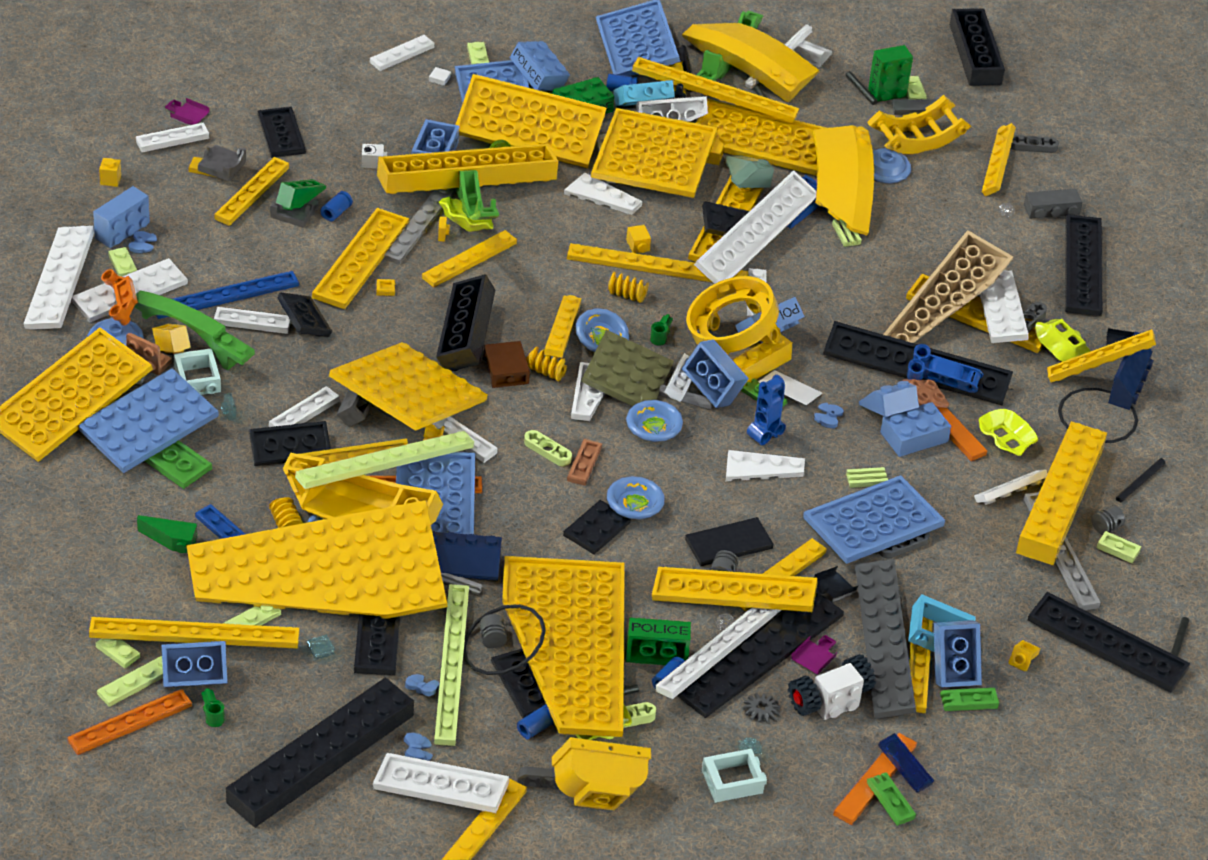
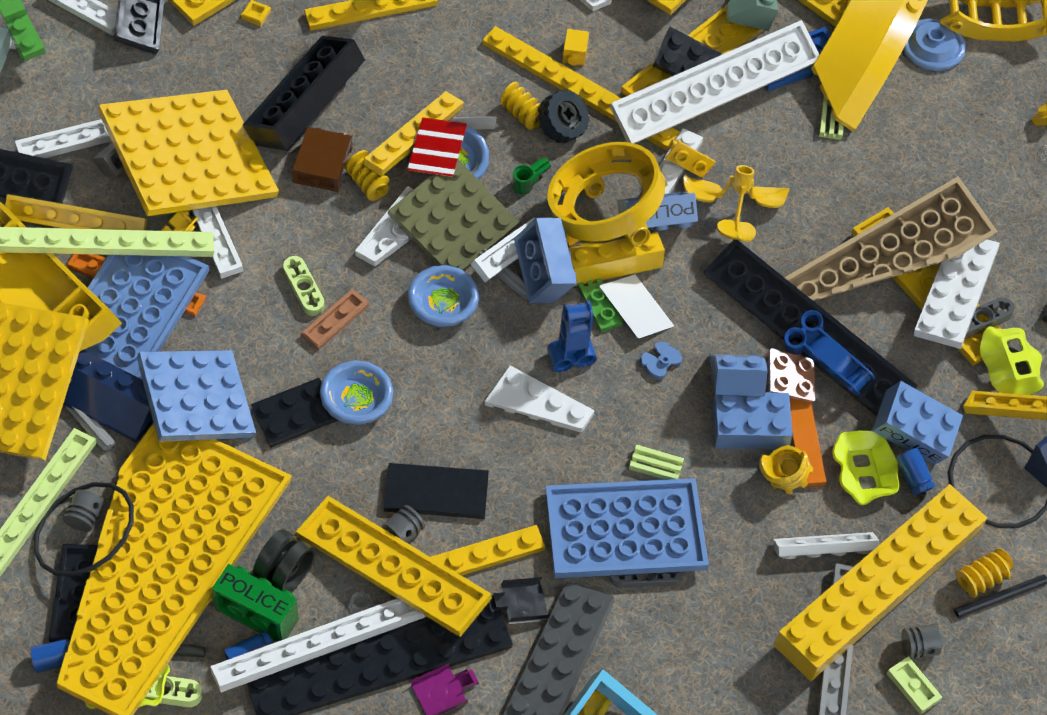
camera: 25 degrees right, 15 degrees up
(525, 534) = (195, 395): none -> medium blue plate
(590, 326) = (437, 147): none -> red sticker
(608, 303) = (477, 123): none -> white sticker
(660, 610) = (284, 561): none -> pearl dark grey wheel
(662, 283) = (567, 126): none -> black wheel
(776, 283) = (689, 158): none -> yellow hinge
(819, 284) = (742, 183): none -> yellow plant
(958, 448) = (786, 468): none -> yellow hair
(1027, 393) = (917, 421): none -> medium blue brick
(1042, 423) = (915, 471): none -> blue piece
(1124, 467) = (984, 572): none -> yellow piece

